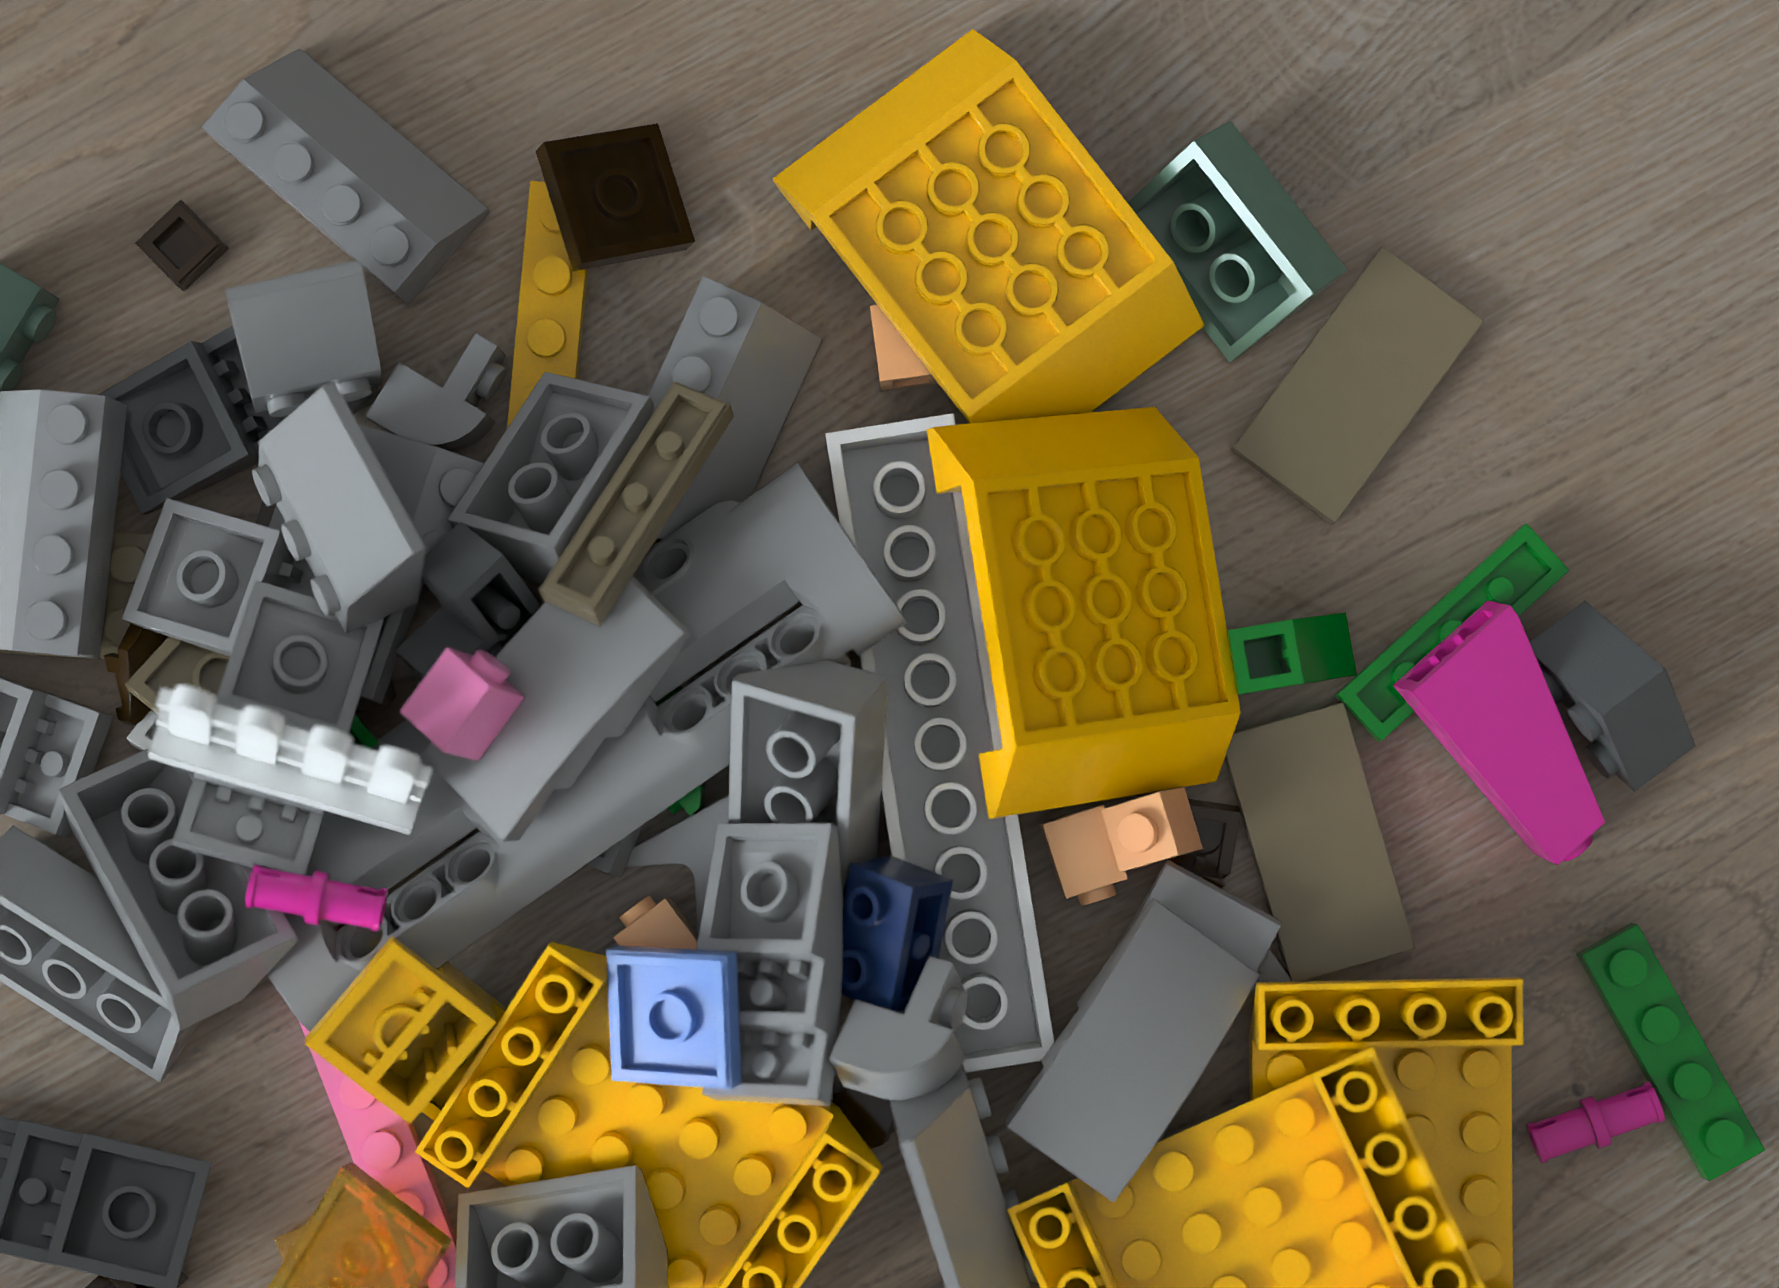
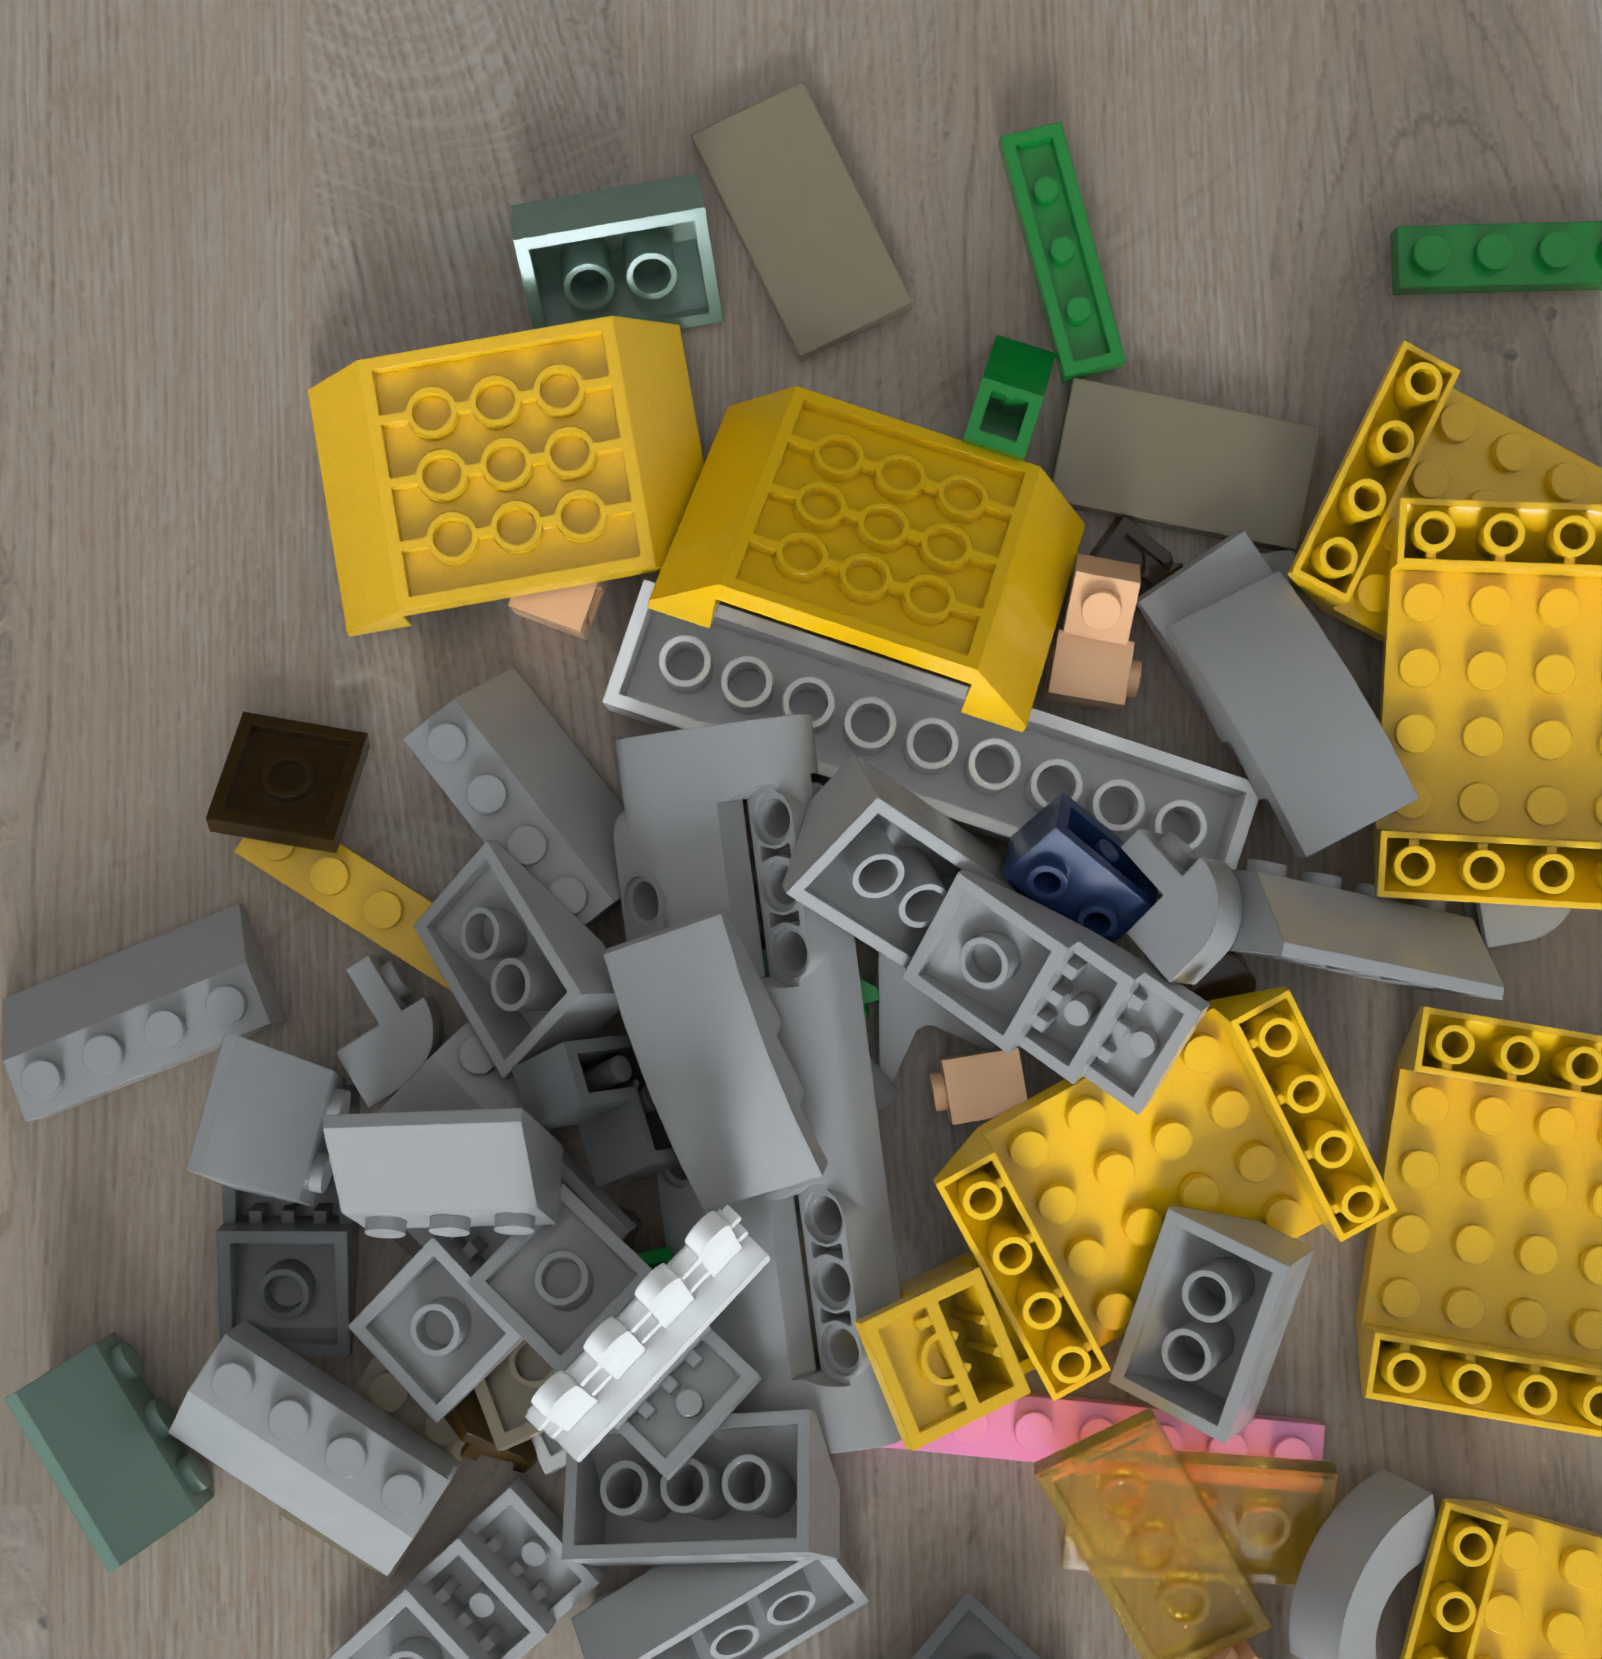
camera: 65 degrees left, 0 degrees up
(182, 245) = (125, 1196): dark brown tile -> none
(316, 897) = (784, 1373): dark pink pin -> none
(463, 702) = (679, 1147): bright pink brick -> none
(636, 503) = (579, 899): dark tan tile -> none
(674, 1016) = (1057, 1103): tile -> none
(1504, 730) = (1172, 248): dark pink slope -> none
(1595, 1122) = (1549, 352): dark pink pin -> none
(1613, 696) = (1189, 135): dark grey brick -> none

